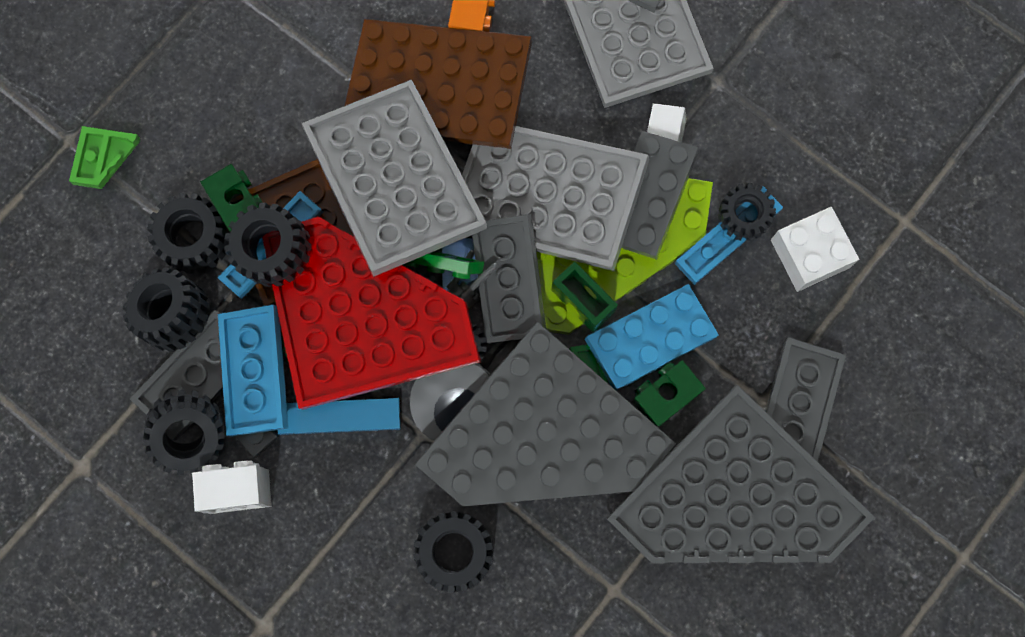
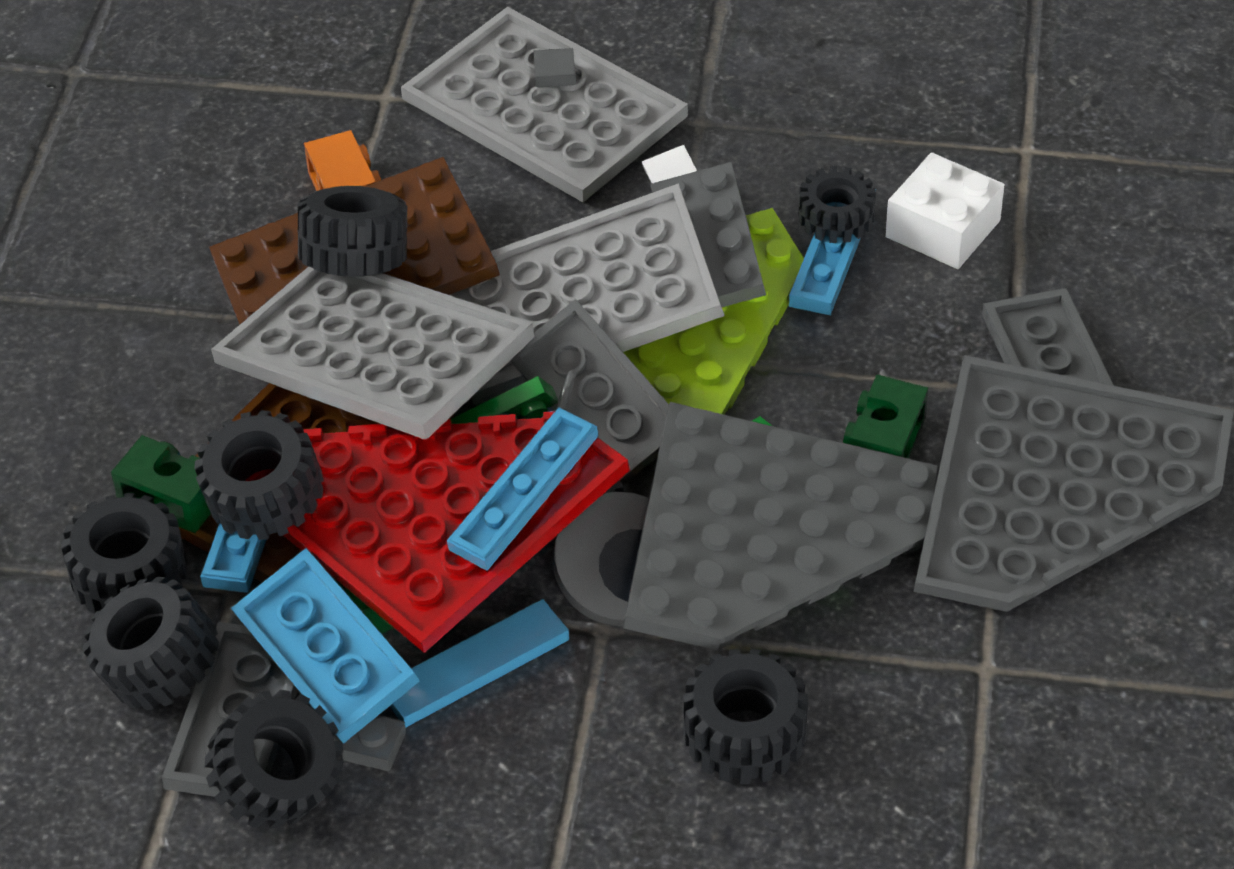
camera: 30 degrees left, 30 degrees down
(231, 489) = (389, 792): white brick -> none
(408, 343) = (522, 488): none -> dark azure tile
(432, 63) = (352, 231): none -> black tyre
(571, 289) = (686, 368): dark green brick -> none
(651, 337) = (821, 379): dark azure plate -> none

